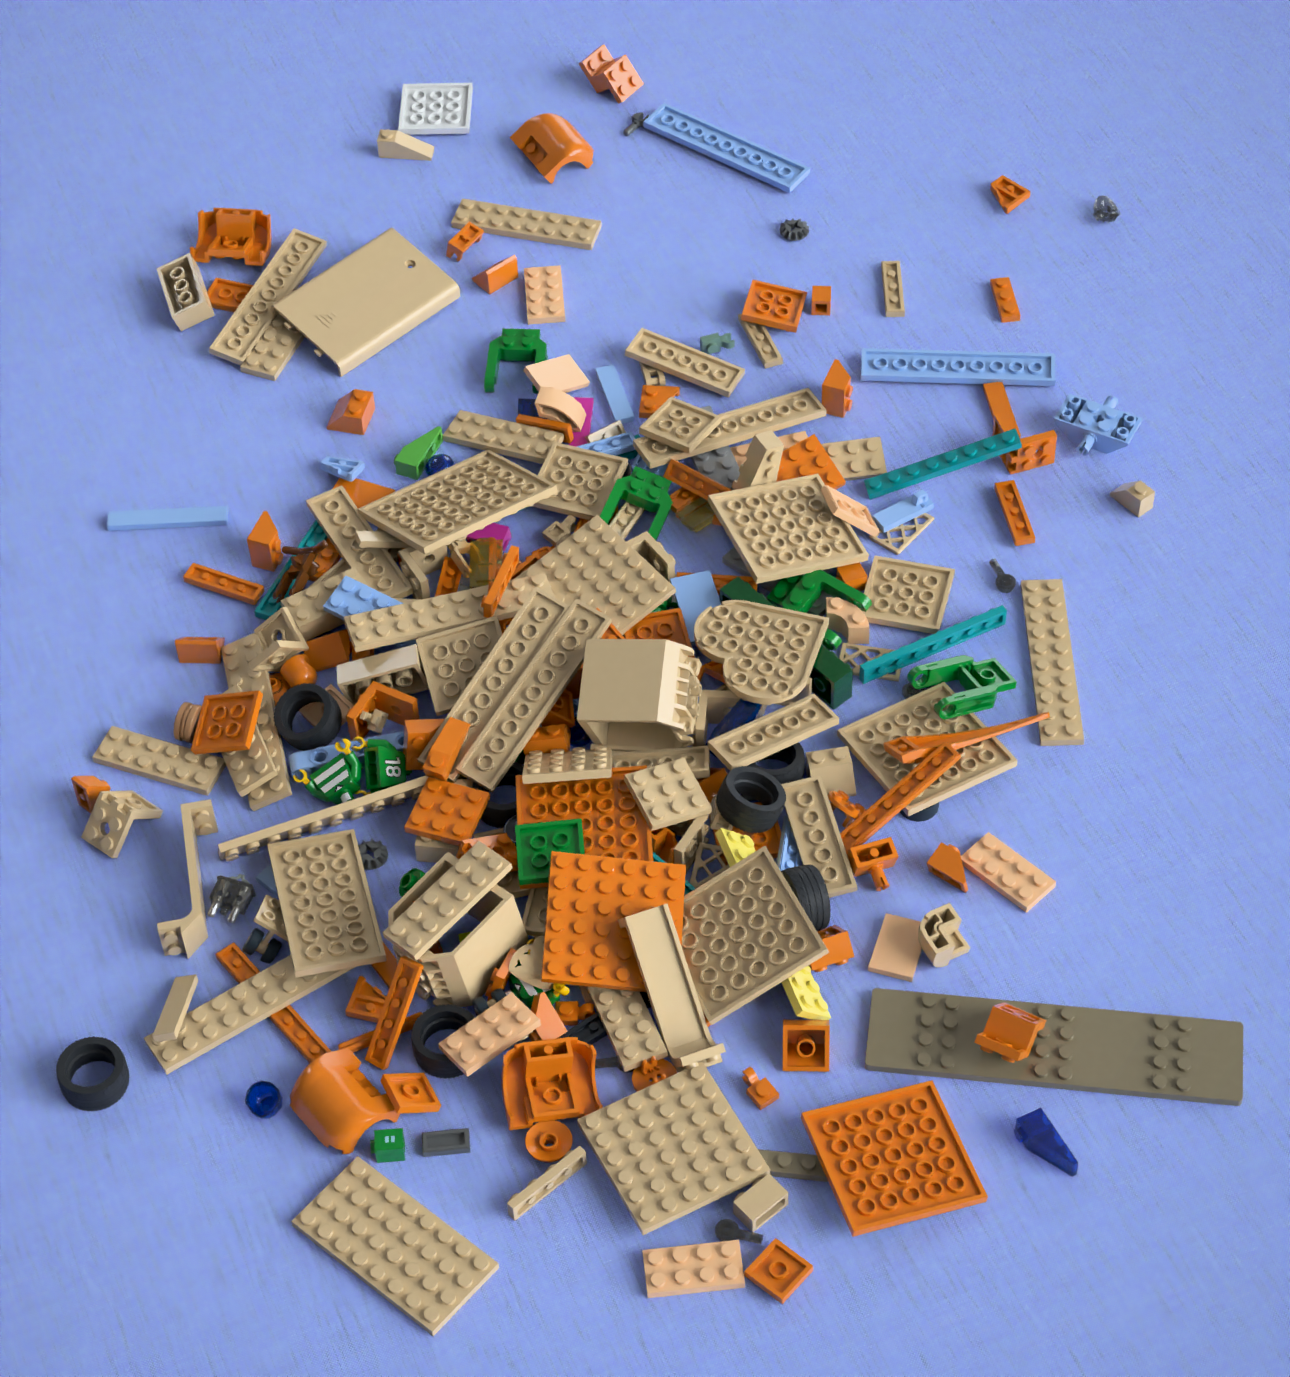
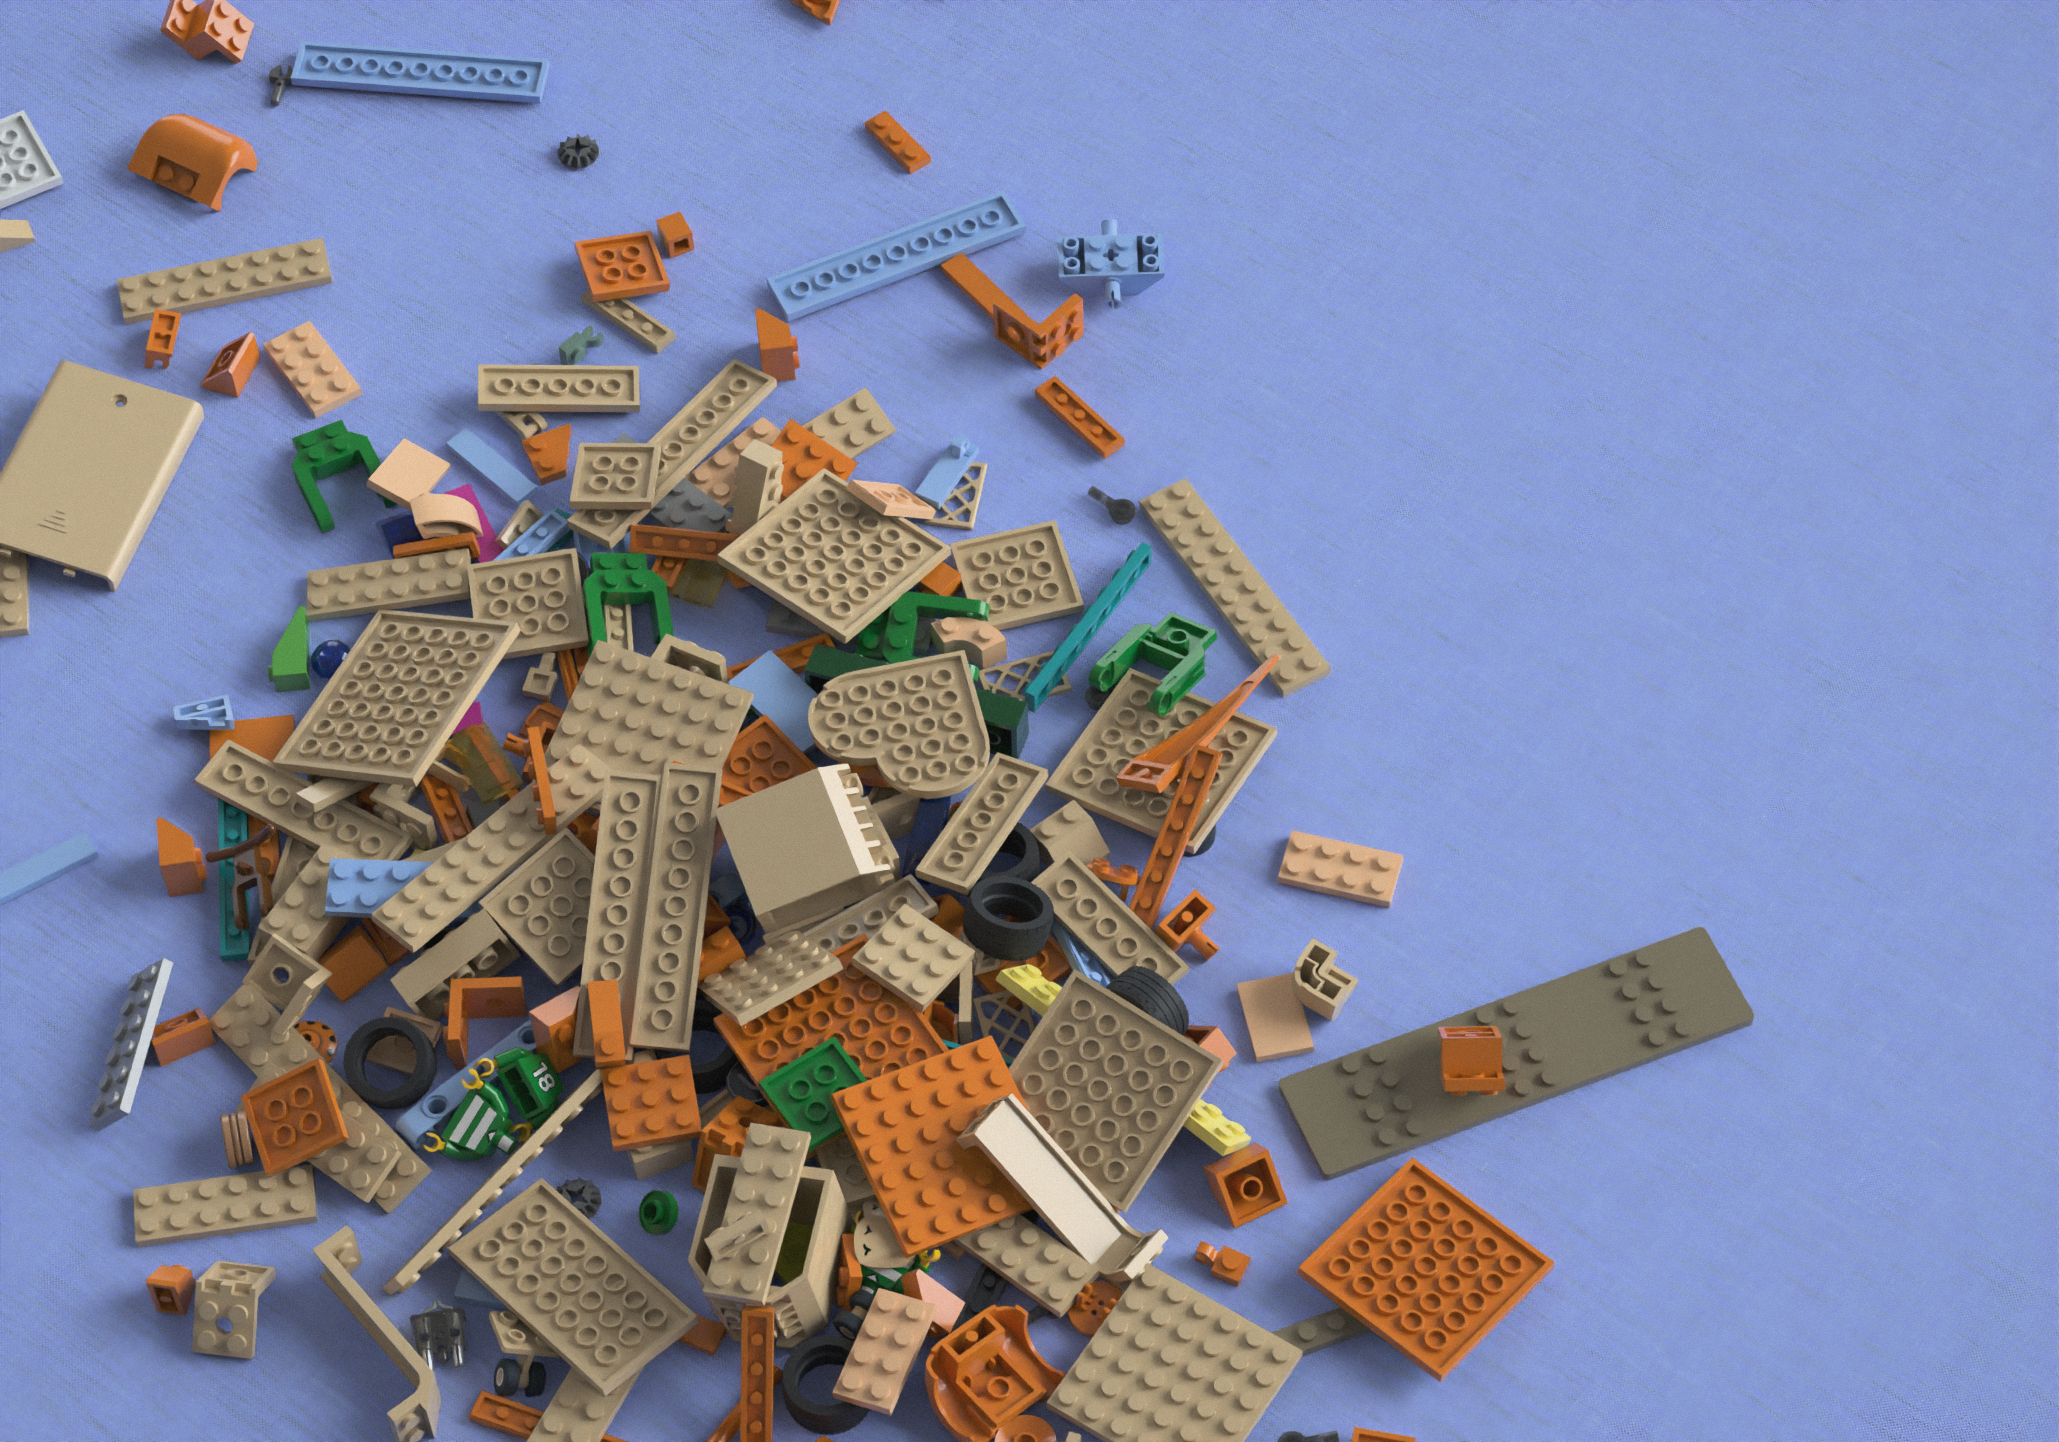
camera: 30 degrees left, 5 degrees up
(167, 636) = (130, 1045): none -> light grey plate
(223, 583) = (152, 937): orange plate -> none
(298, 671) = (336, 1011): orange helmet -> none
(353, 412) = (166, 634): orange slope -> none
(365, 1002) = (703, 1384): orange wing -> none
(375, 720) = (475, 1027): tan plate -> none
(420, 904) = (729, 1239): none -> tan plate
(570, 1012) = (953, 1277): orange plate -> none
(760, 1202) = (1310, 1394): tan brick -> none
(892, 289) = (751, 182): tan tile -> none
(943, 463) = (964, 391): teal plate -> none
(948, 866) = (1276, 893): orange slope -> none
(1044, 1141) = (1575, 1167): clear blue slope -> none
(1135, 497) = (1206, 337): tan slope -> none

